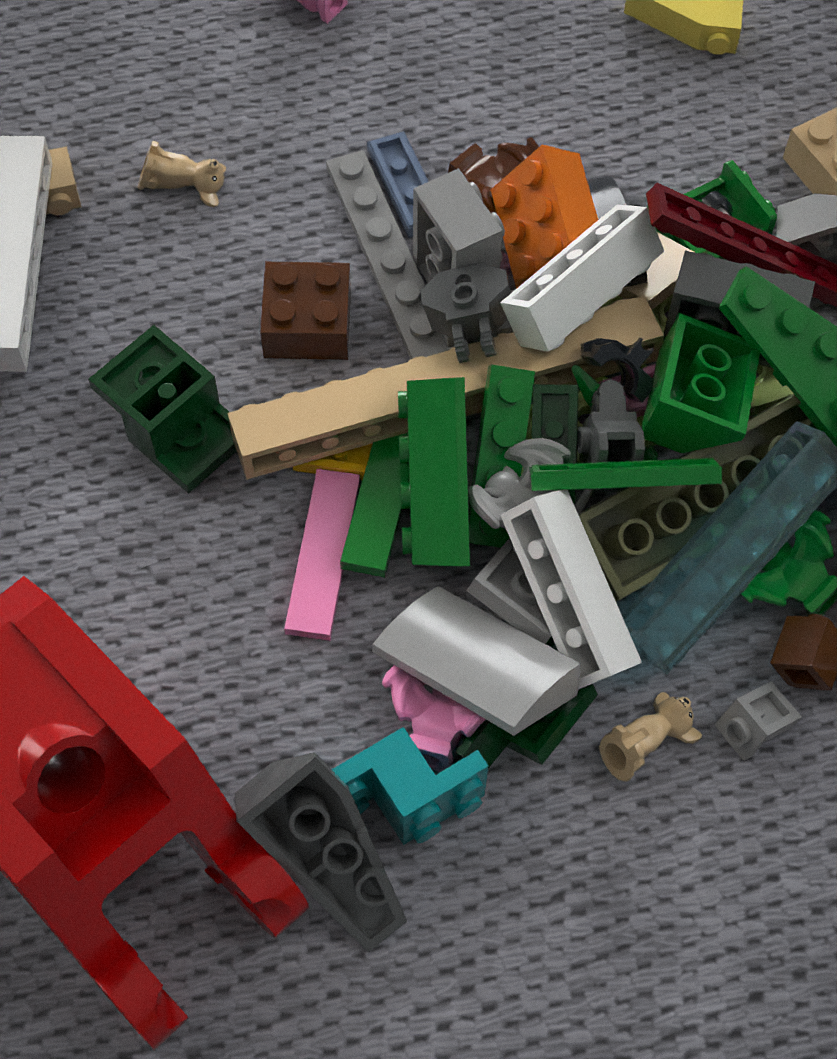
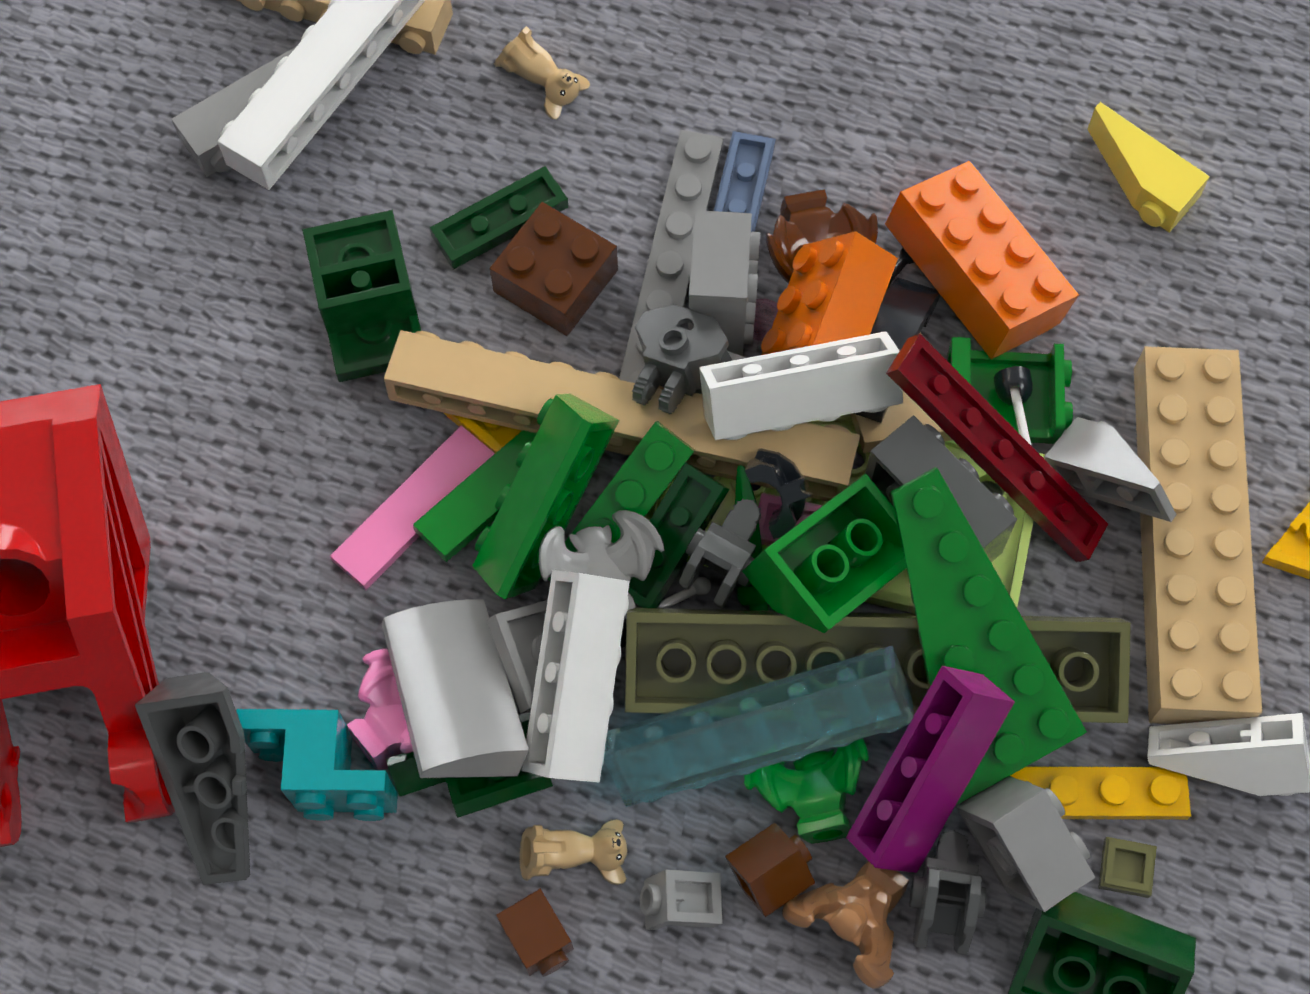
camera: 35 degrees right, 5 degrees up
(227, 299) = (496, 217): none -> dark green plate
(625, 474) = (692, 600): green tile -> none
(626, 131) = (980, 259): none -> orange brick
(671, 813) = (536, 934): none -> reddish brown brick

